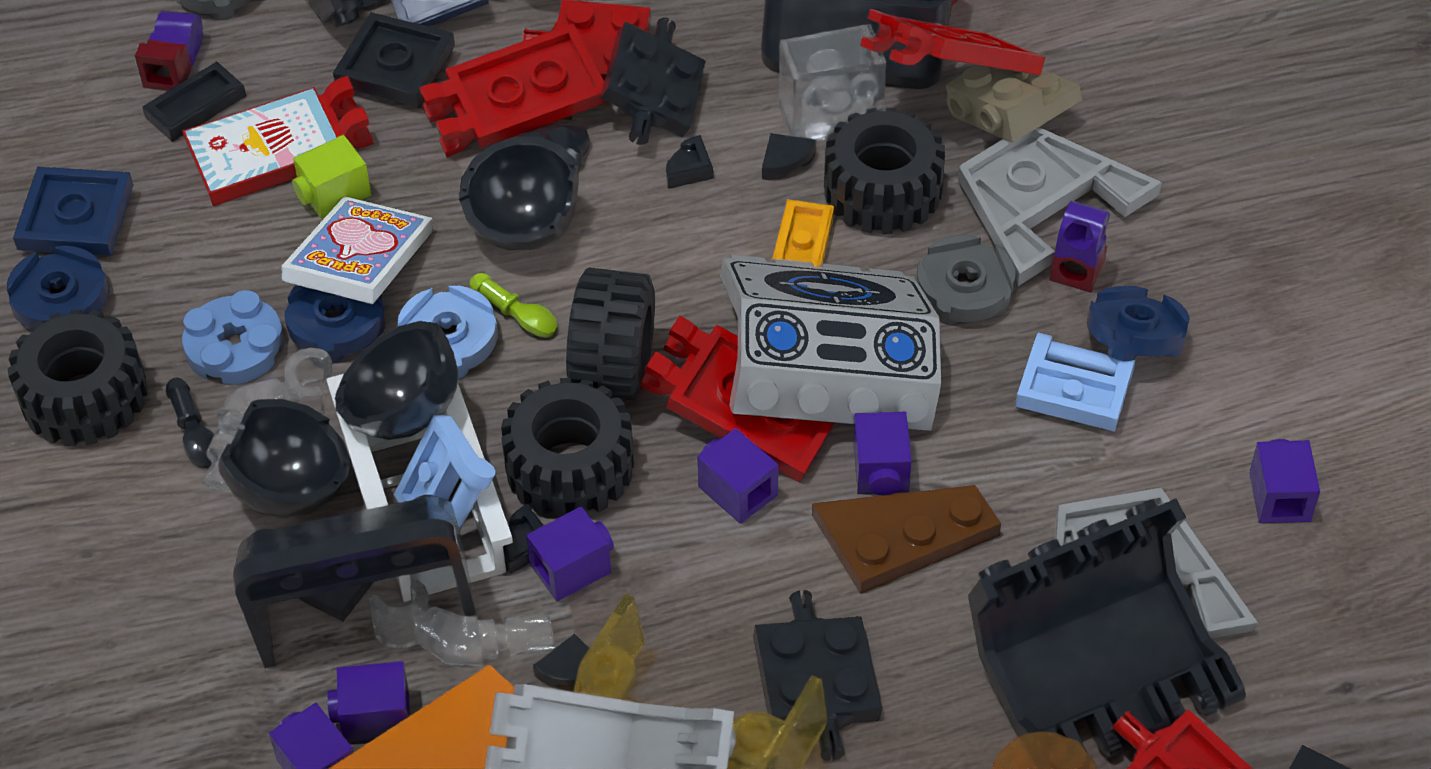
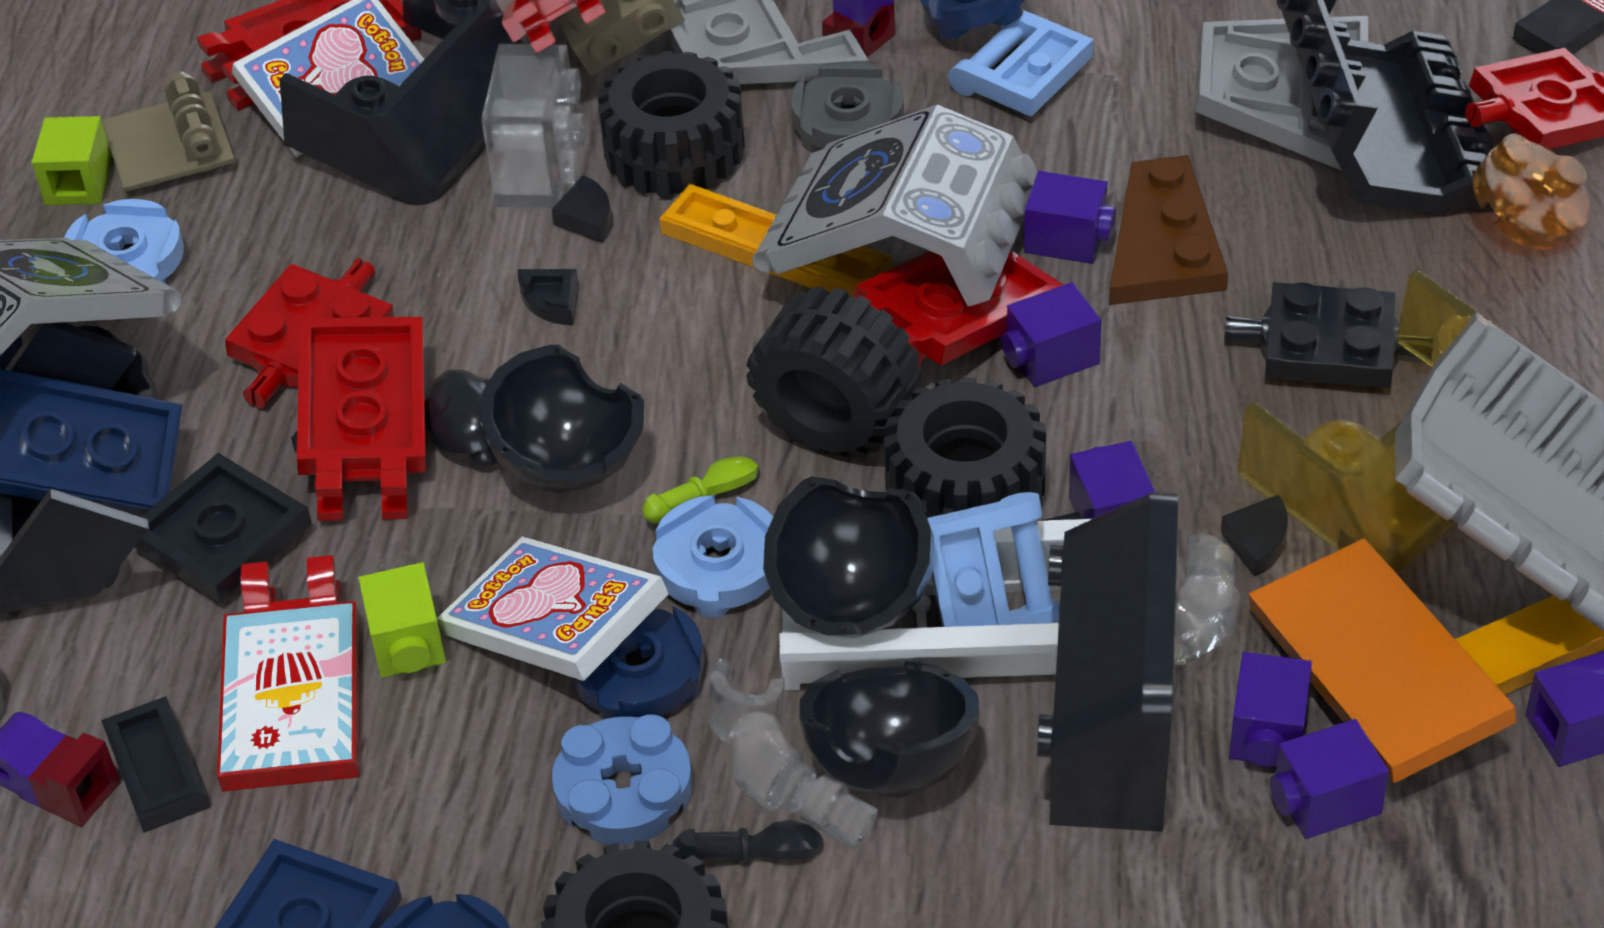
camera: 70 degrees left, 5 degrees down
(653, 80) = (419, 281): black plate -> none

